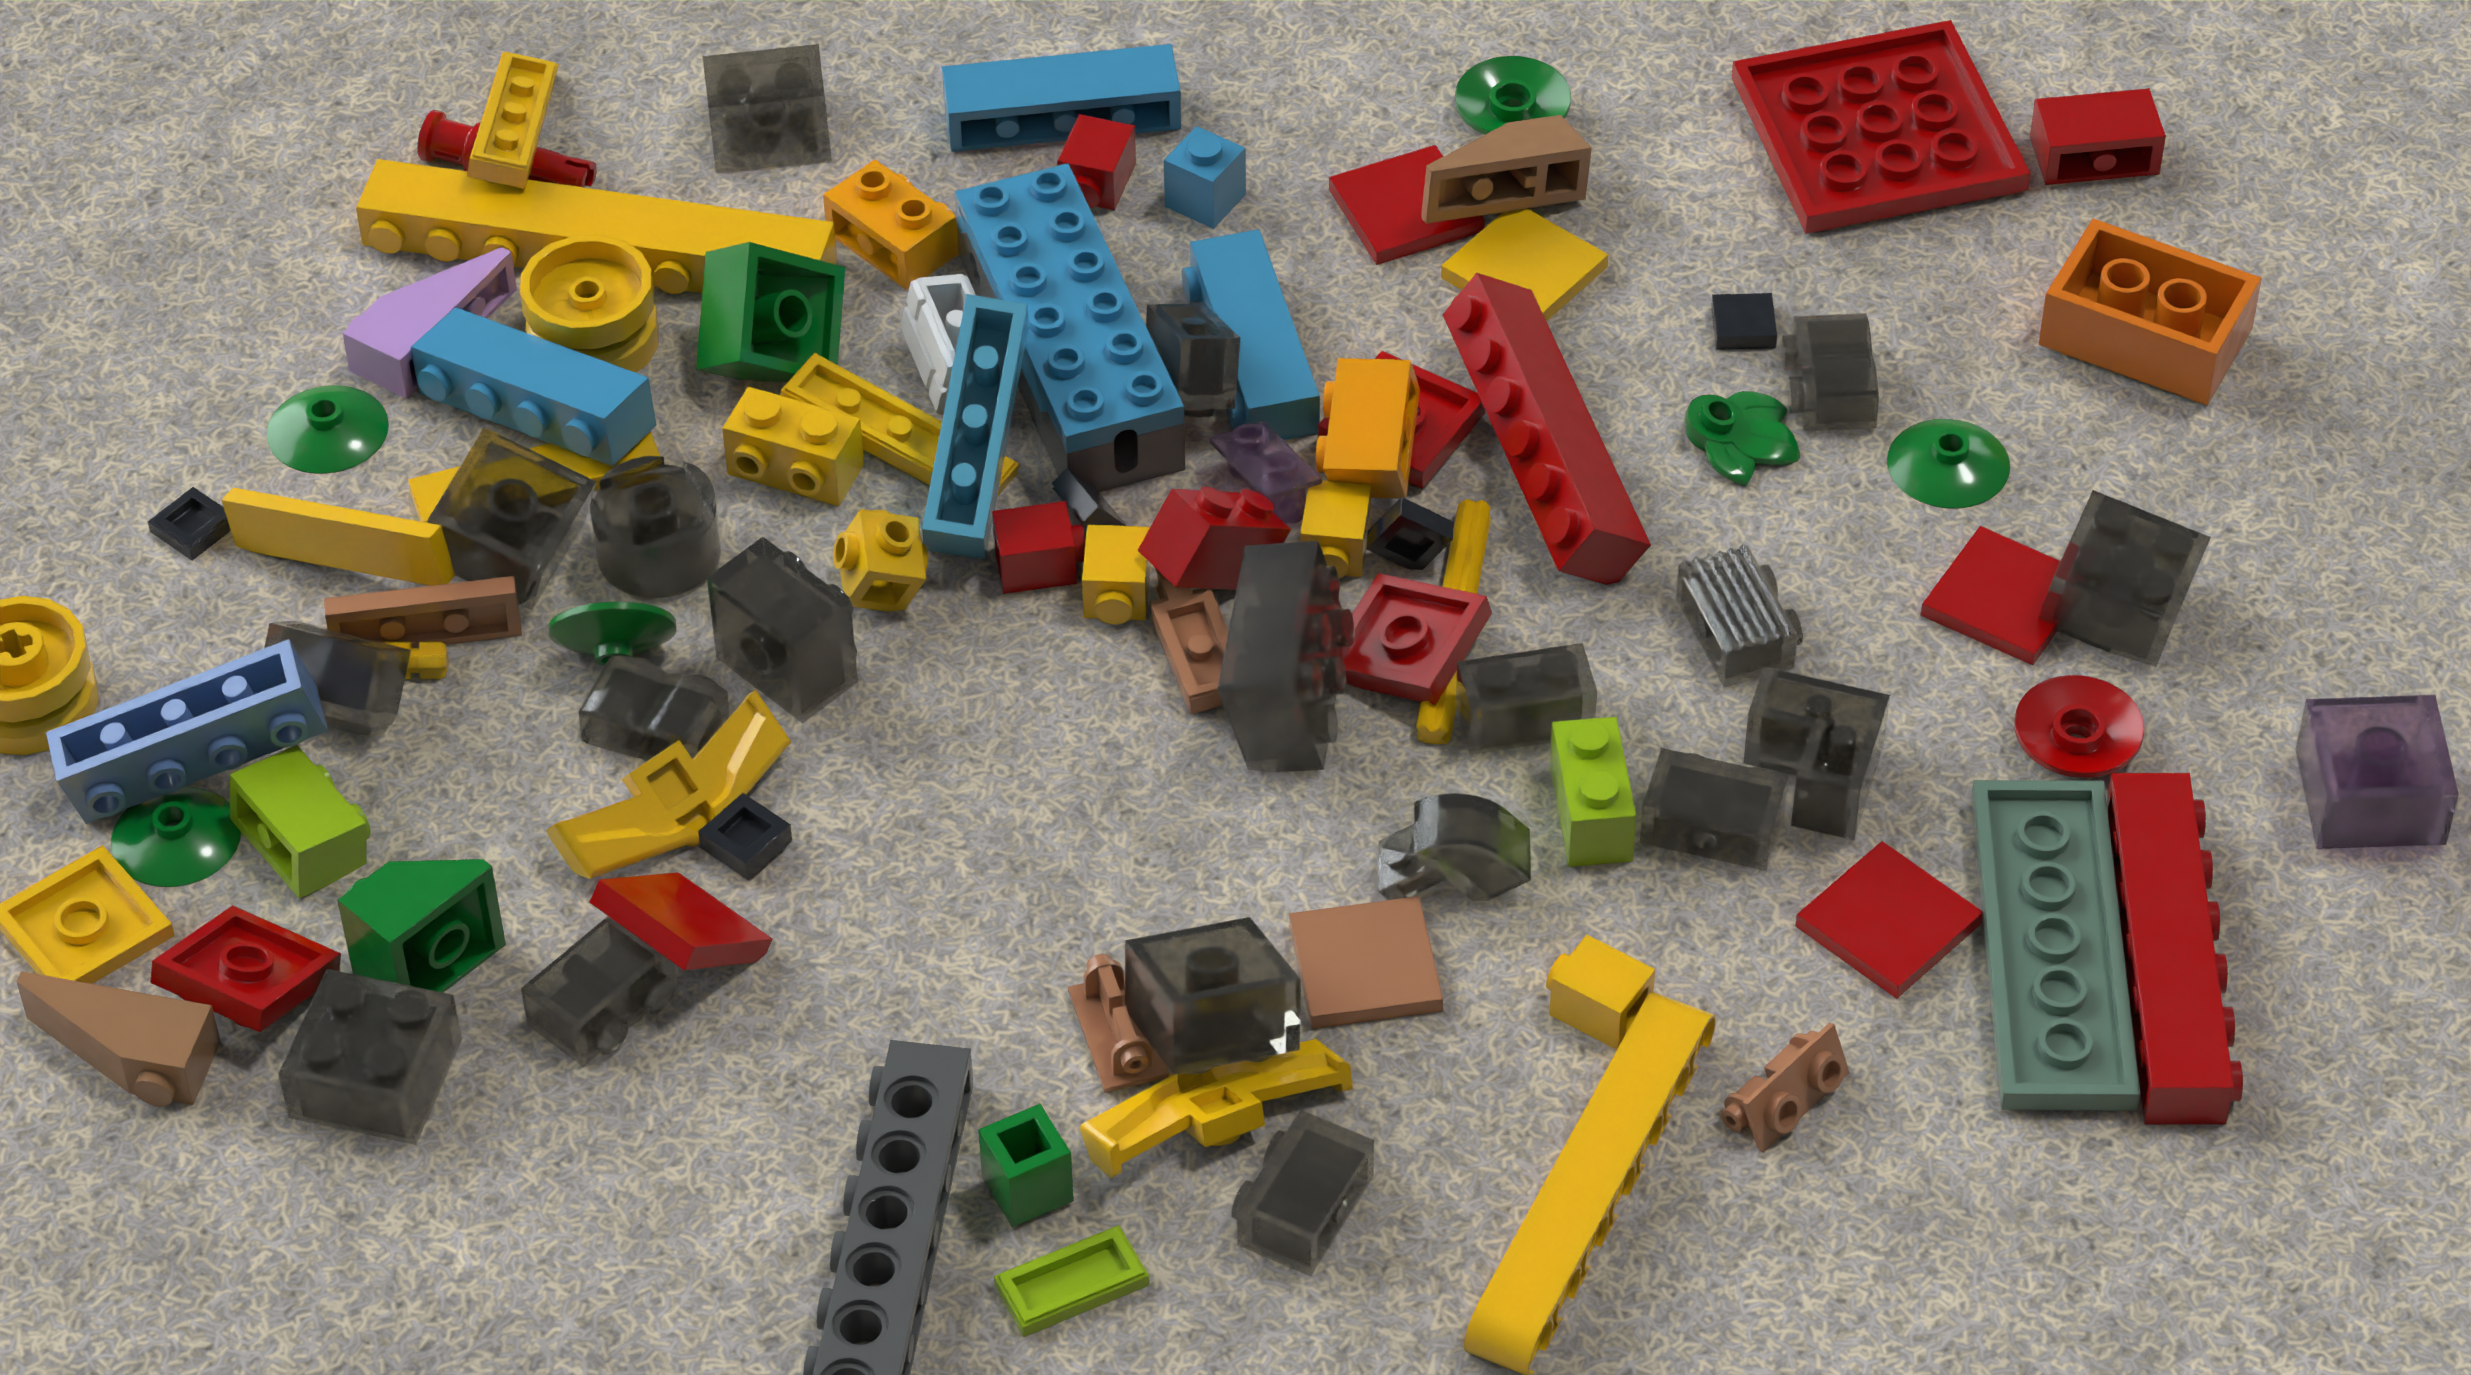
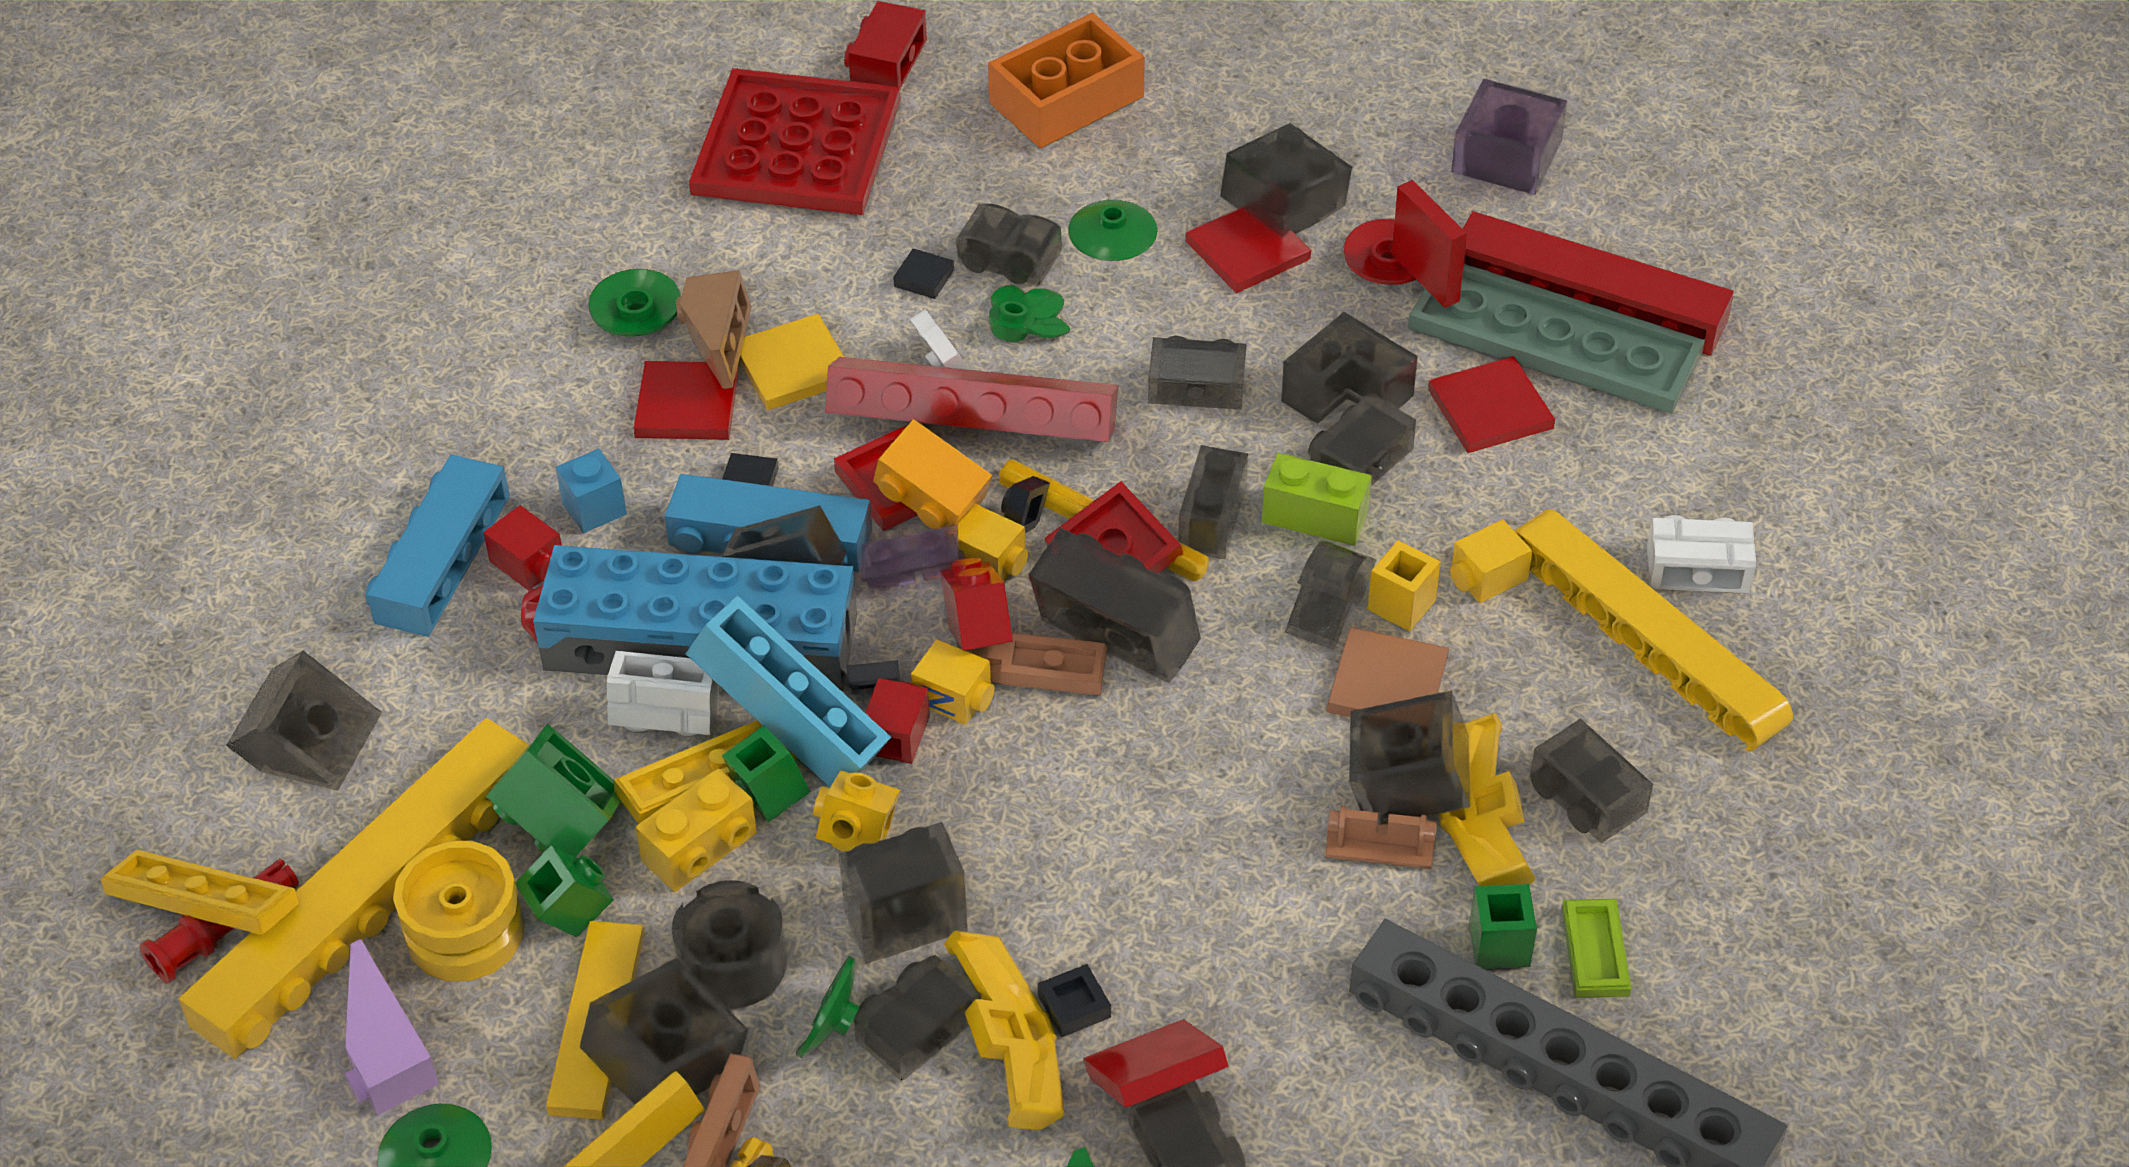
camera: 65 degrees left, 0 degrees up
(534, 386) = (515, 977): dark azure brick -> none
(670, 368) = (565, 890): none -> green brick
(889, 465) = (766, 773): none -> green brick
(891, 223) = (503, 686): light orange brick -> none
(1323, 300) = (751, 469): none -> black tile
(1495, 913) = (1403, 585): none -> yellow brick
(1613, 376) = (942, 351): none -> white plate
(1749, 1198) = (1701, 554): none -> white brick
(1796, 1082) = (1601, 487): nougat hinge -> none
(2058, 732) = (1429, 243): none -> red tile

